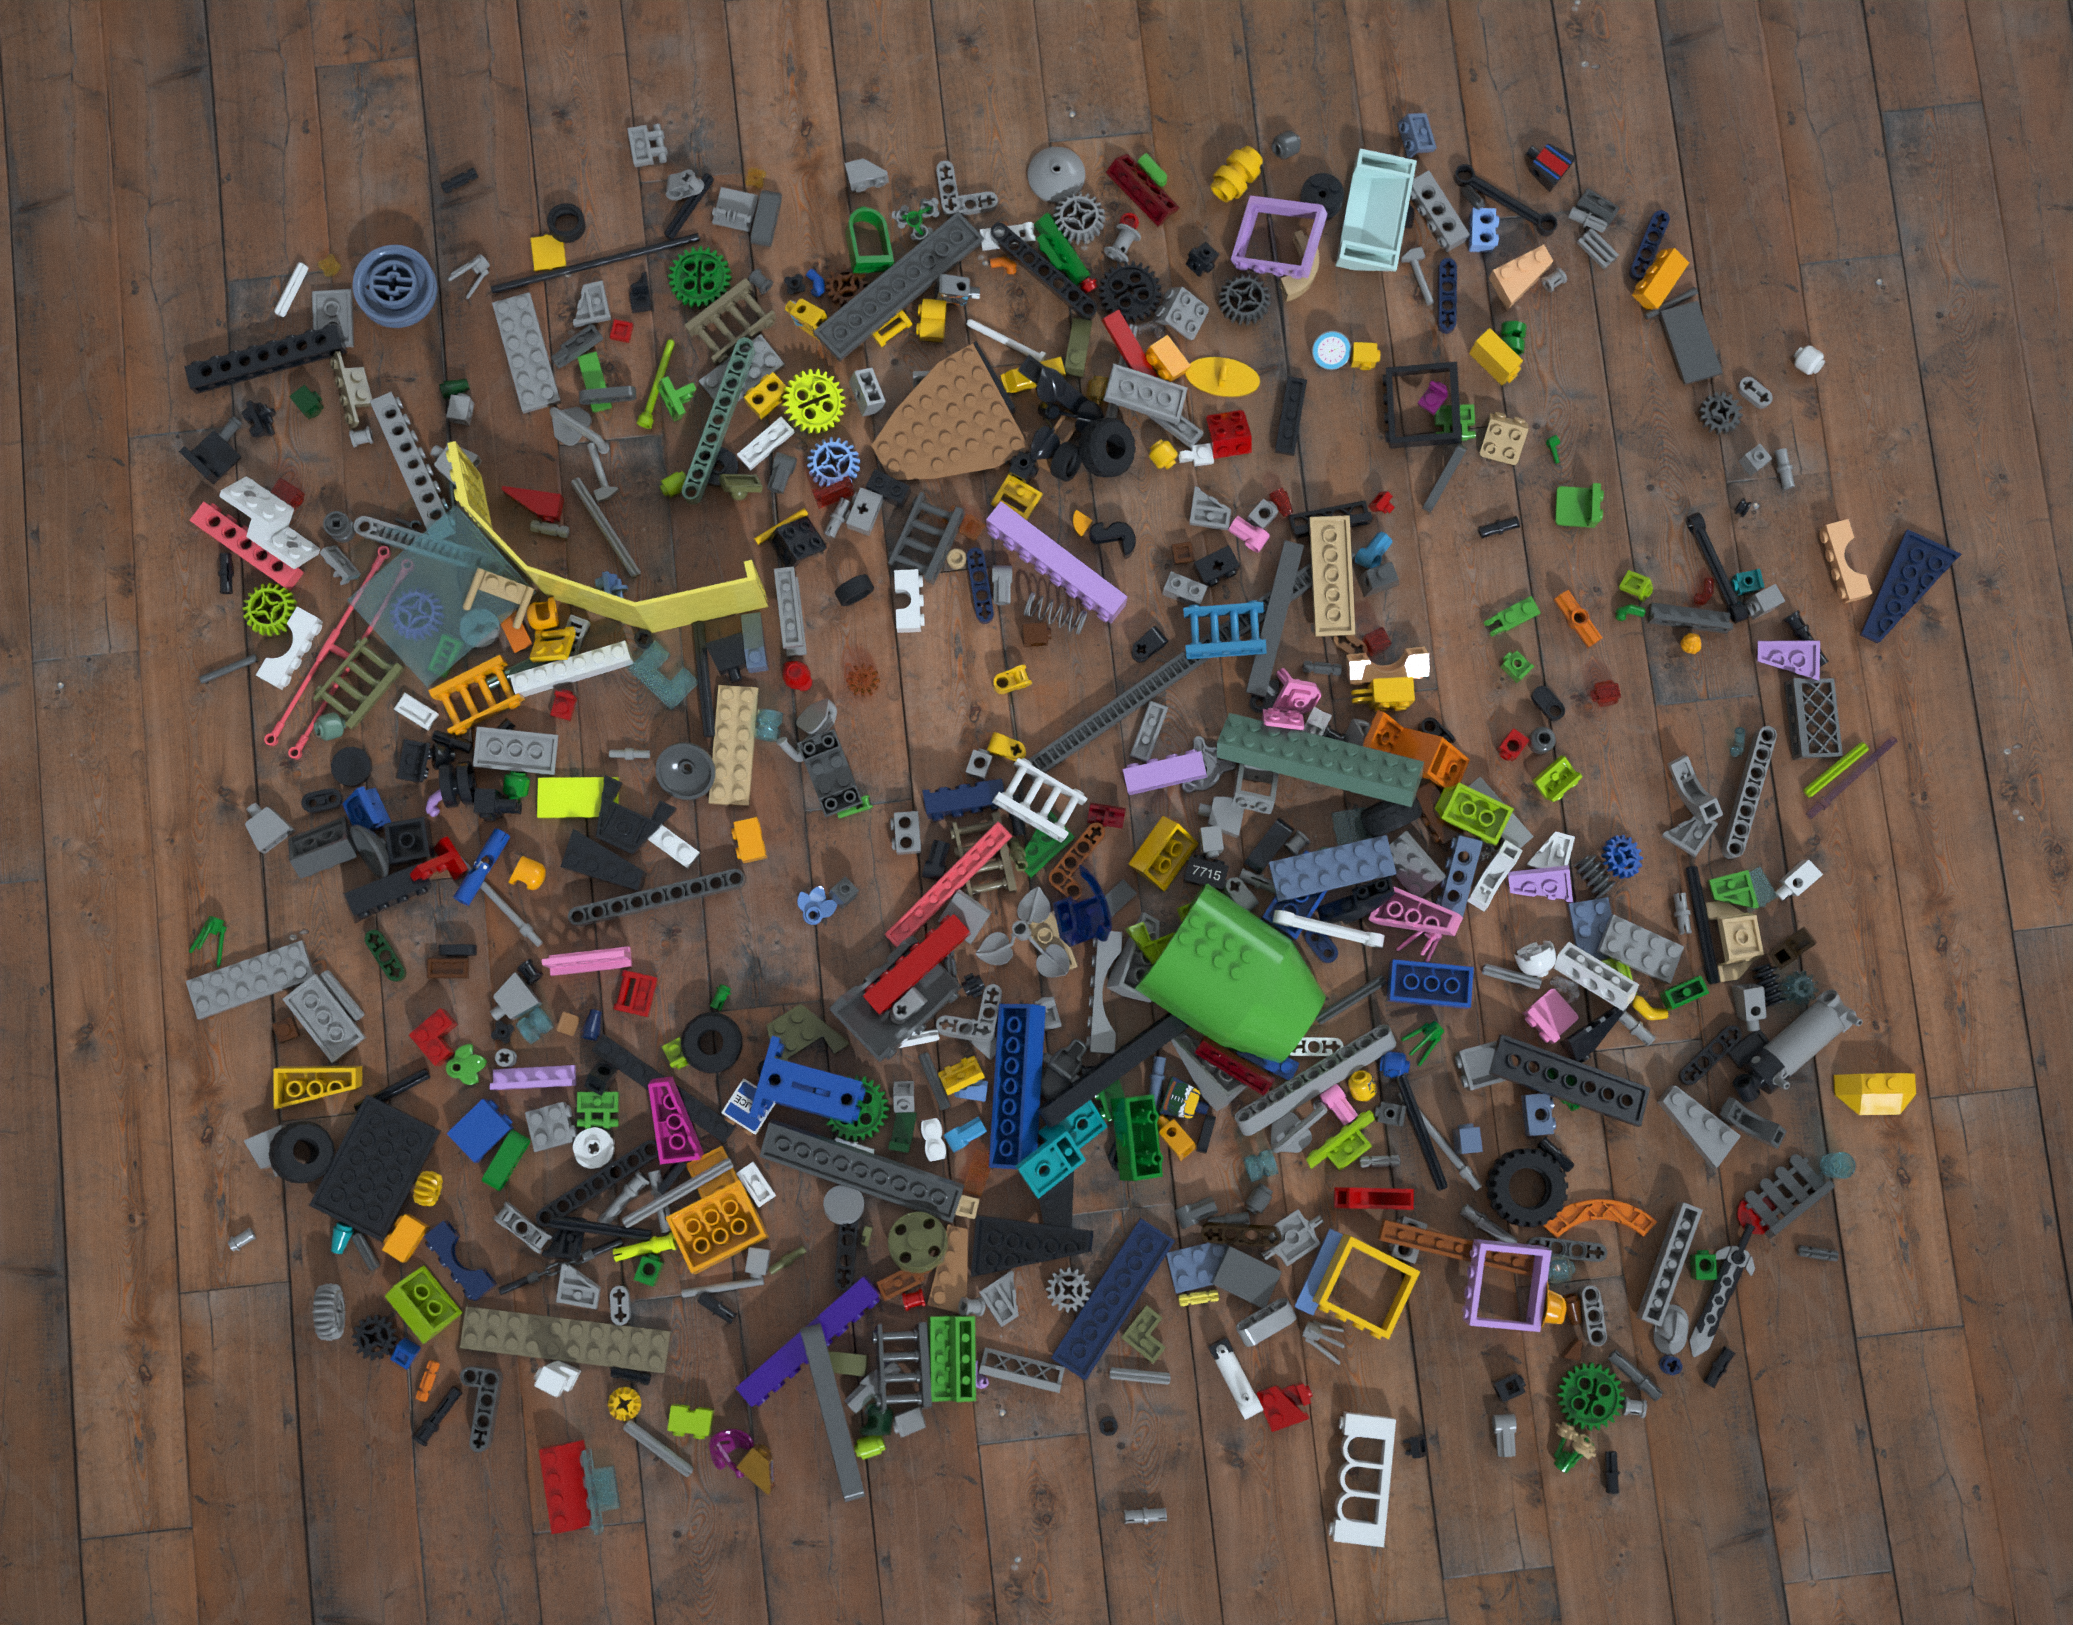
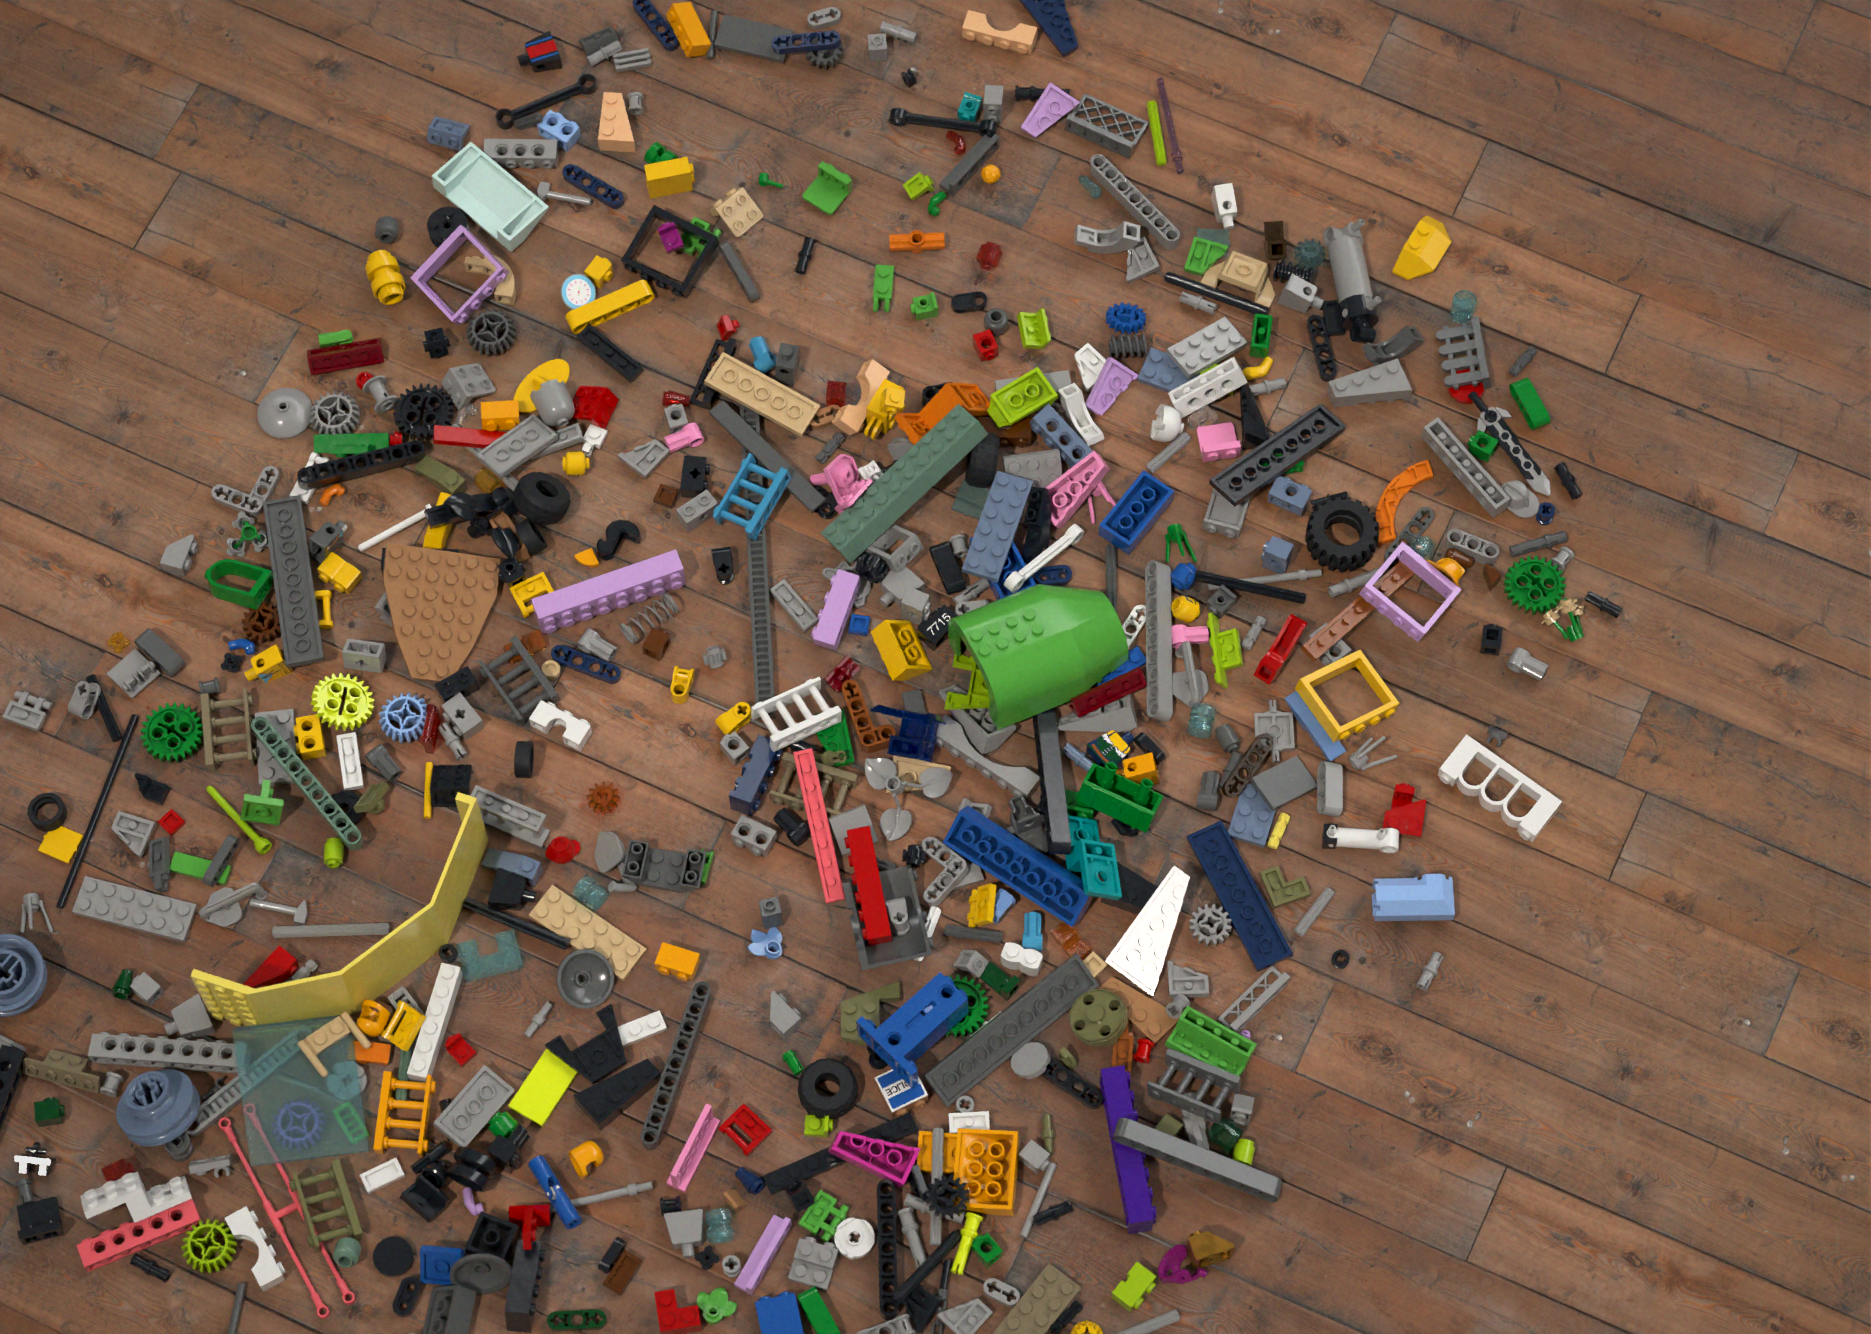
camera: 55 degrees left, 15 degrees down
(357, 489) = (157, 1107): none -> sand blue wheel
(660, 1217) = (954, 1194): none -> black gear
(755, 961) = (782, 1017): none -> light grey slope
(765, 1172) = (966, 1099): none -> light grey bush
(1054, 693) = (714, 656): none -> light grey gear
(1166, 800) = (859, 625): none -> blue tile
(1202, 1463) = (1413, 898): none -> light blue brick
(1206, 399) = (553, 403): none -> light grey cylinder
(1222, 779) = (871, 567): none -> black gear
(1336, 386) = (610, 306): none -> yellow beam
(1391, 699) = (892, 401): none -> yellow brick
(1712, 394) = (806, 39): none -> dark blue beam
(1776, 1285) = (1529, 403): none -> green beam

